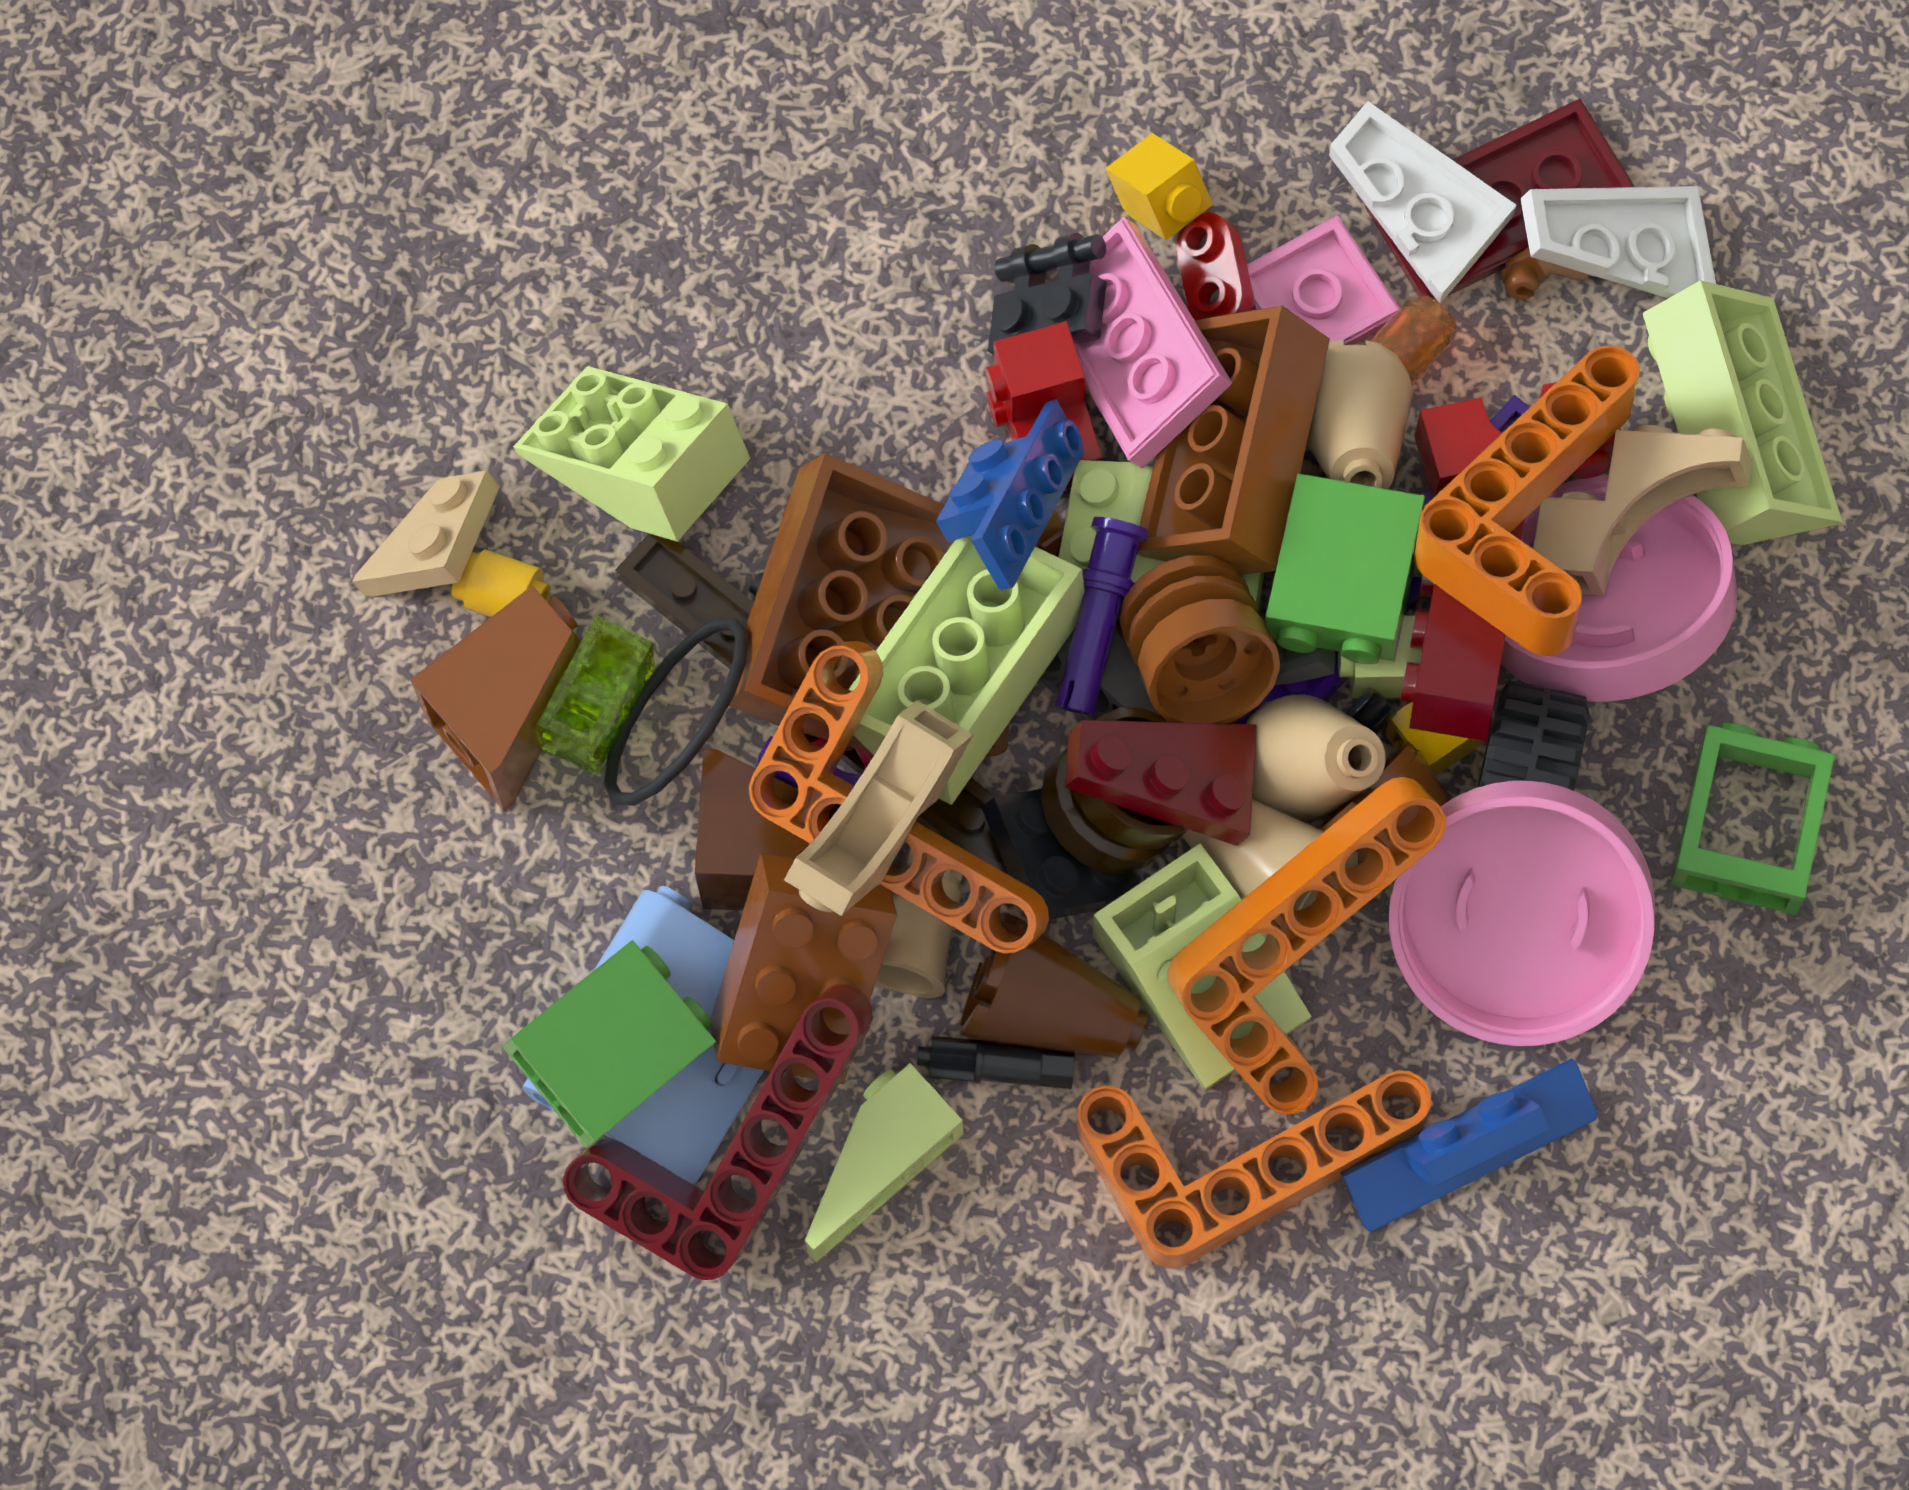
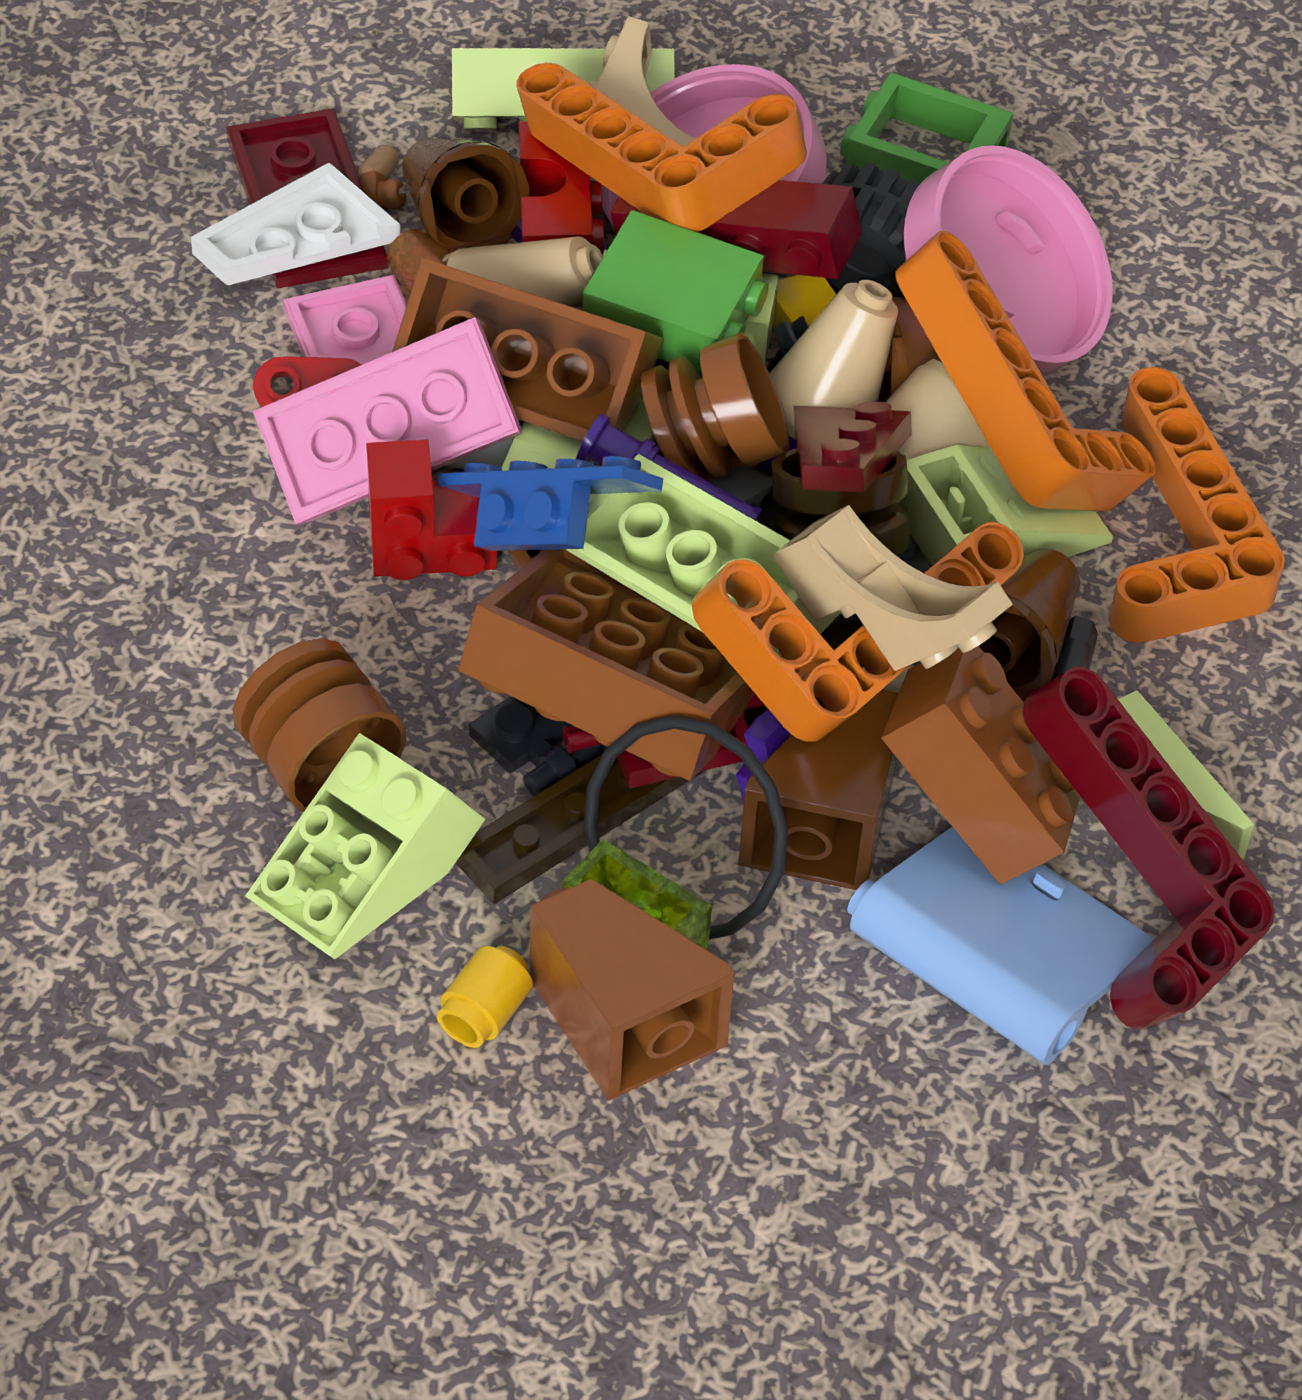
camera: 85 degrees left, 20 degrees down
(433, 538) = (414, 1046): tan wing -> none
(611, 1042) = (1031, 941): bright green brick -> none
(759, 365) = (307, 711): none -> dark orange wheel
(1033, 304) = (324, 500): black plate -> none
(1159, 186) = (218, 398): yellow brick -> none
(1469, 1145) = (1200, 351): blue bracket -> none
(1509, 339) = (465, 191): none -> reddish brown cone
(1623, 235) = (379, 113): white wing -> none

